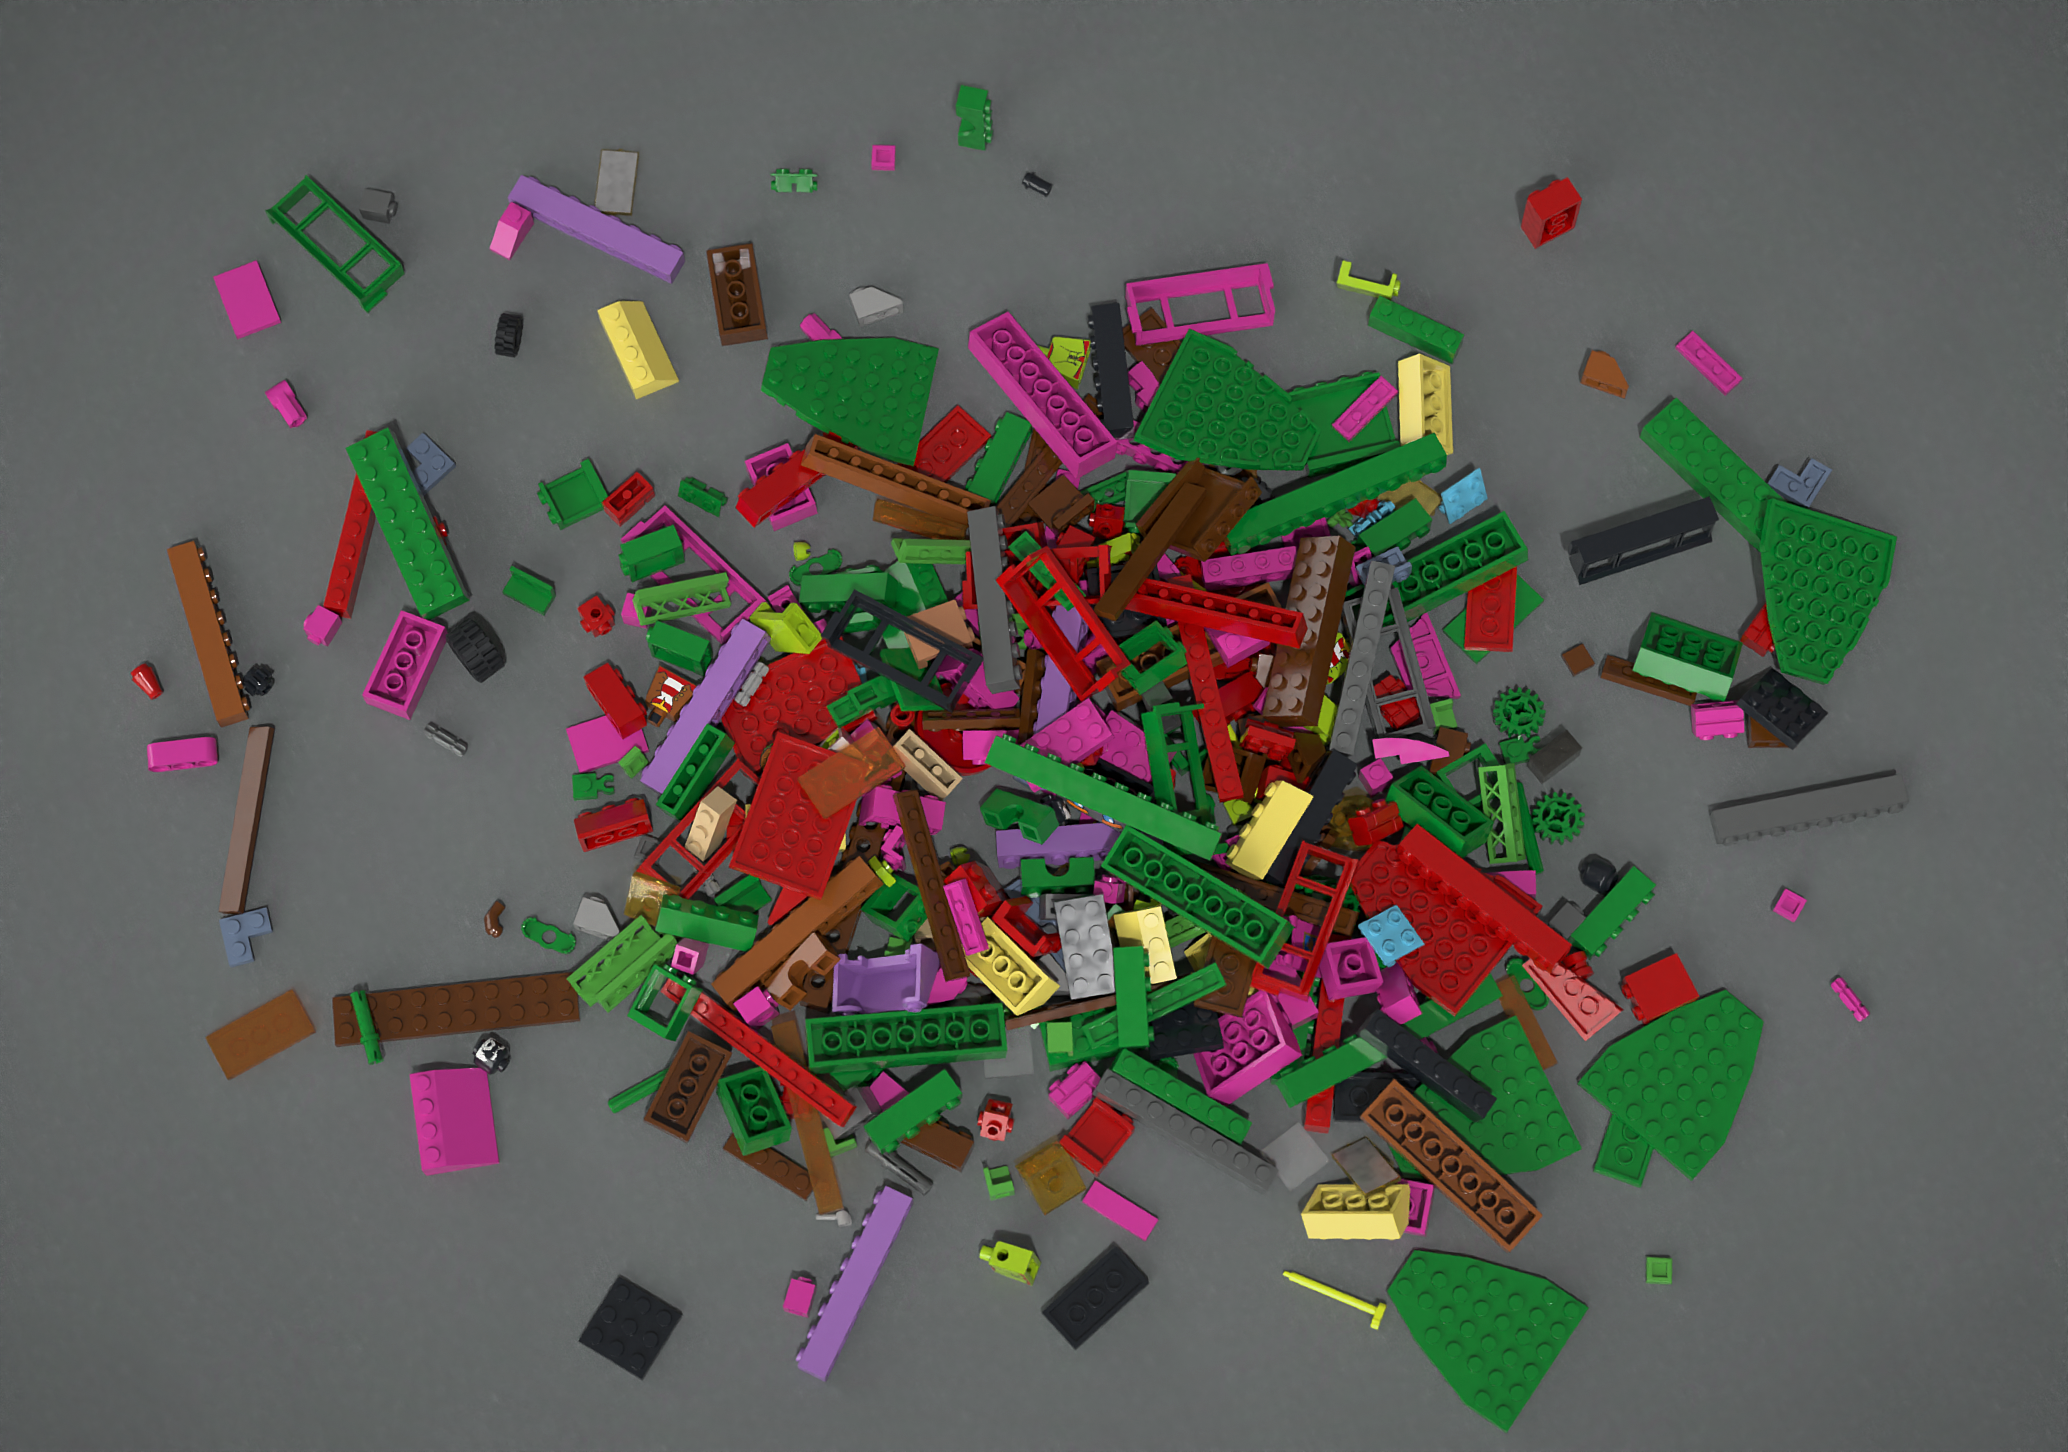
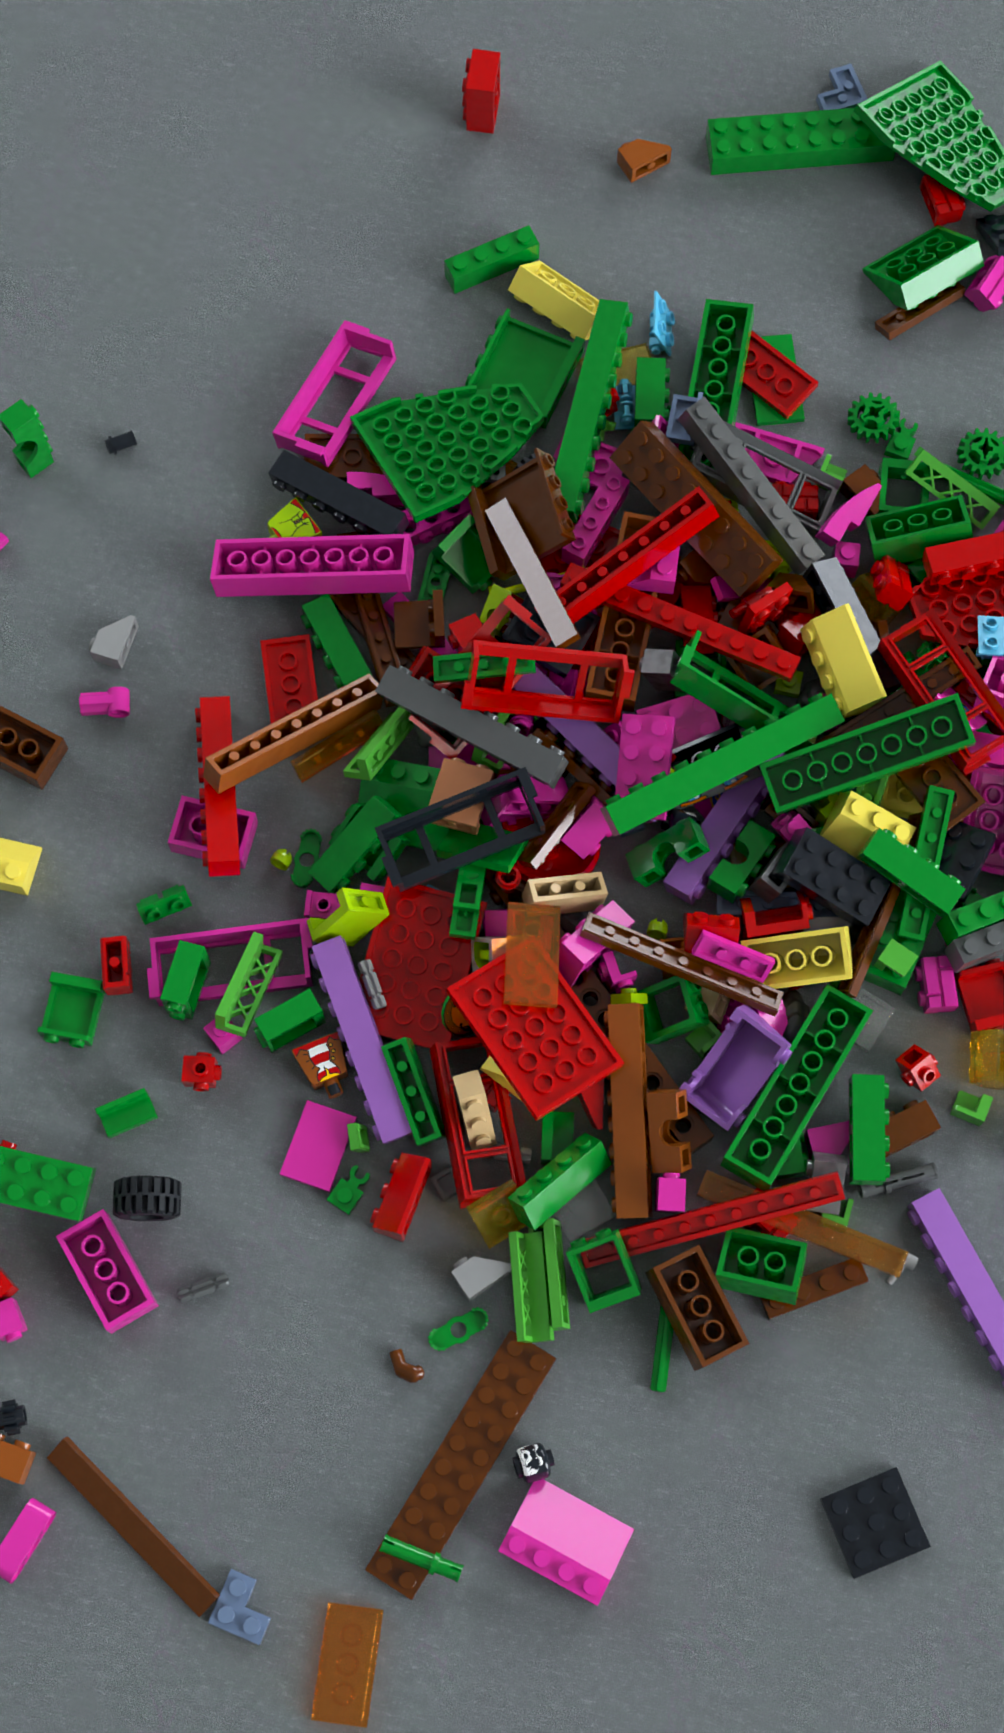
camera: 55 degrees left, 0 degrees up
(616, 700) = (291, 1110): red brick -> none
(689, 955) = (579, 1217): dark pink brick -> none
(800, 1297) = (955, 1350): dark pink brick -> none
(857, 389) = (181, 704): green wing -> none
(1107, 521) = (462, 599): red brick -> none
(1143, 641) = (613, 619): green window -> none
(1365, 408) = (526, 343): dark pink tile -> none
(1366, 287) = (409, 275): lime panel -> none
(1554, 757) = (931, 418): clear smoke brick -> none
(1578, 660) = (860, 346): reddish brown tile -> none
(1641, 533) = (806, 226): black piece -> none
(1709, 363) = (691, 84): dark pink tile -> none

